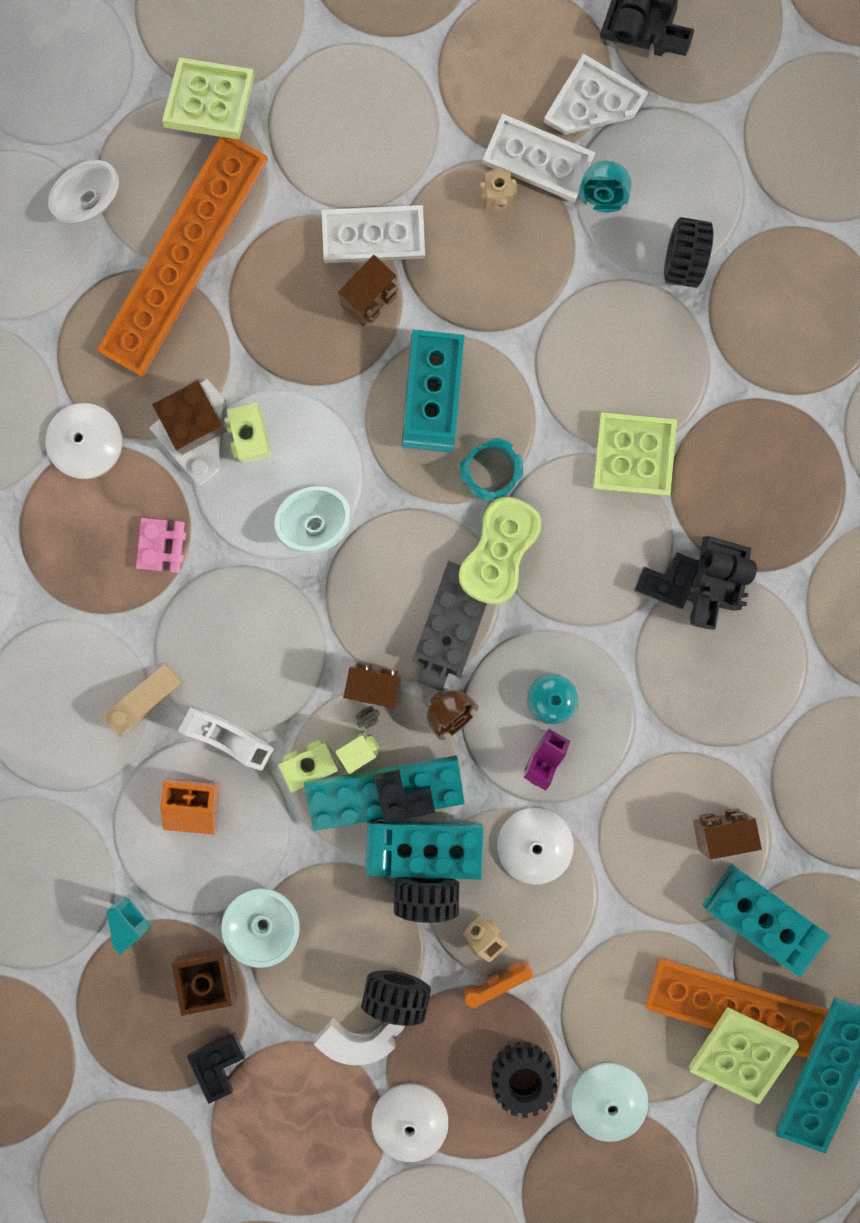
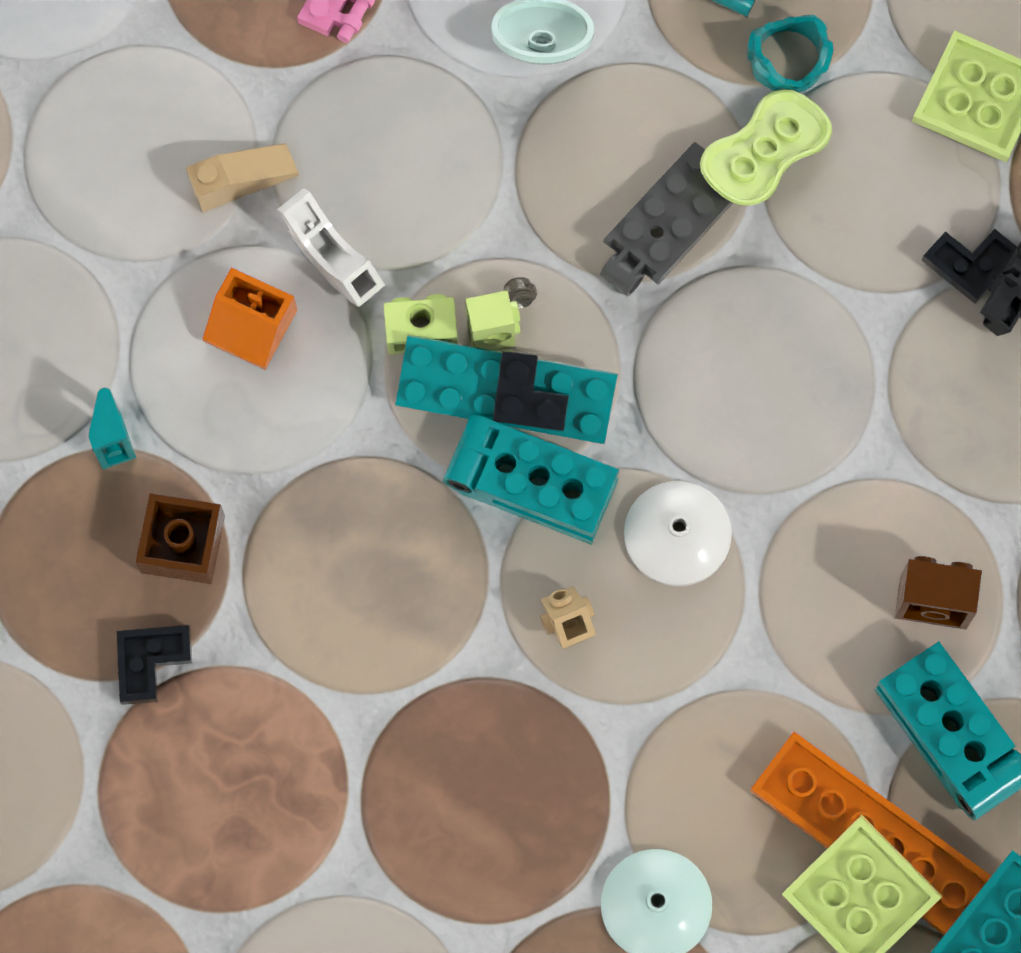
camera: 20 degrees right, 15 degrees down
(251, 942) = (275, 475): light aqua dish -> none
(356, 1048) = (349, 704): white arch -> none
(372, 686) = (542, 249): reddish brown brick -> none
(396, 998) = (423, 642): black tyre -> none
(415, 1107) = (379, 858): white dish -> none
(426, 899) = (512, 530): black tyre -> none
(450, 712) = (629, 321): reddish brown cylinder -> none
(497, 985) = (562, 687): orange plate -> none
(529, 1099) = (552, 788): black tyre -> none
(546, 758) = (733, 420): magenta brick -> none
(552, 699) = (768, 355): teal cylinder -> none

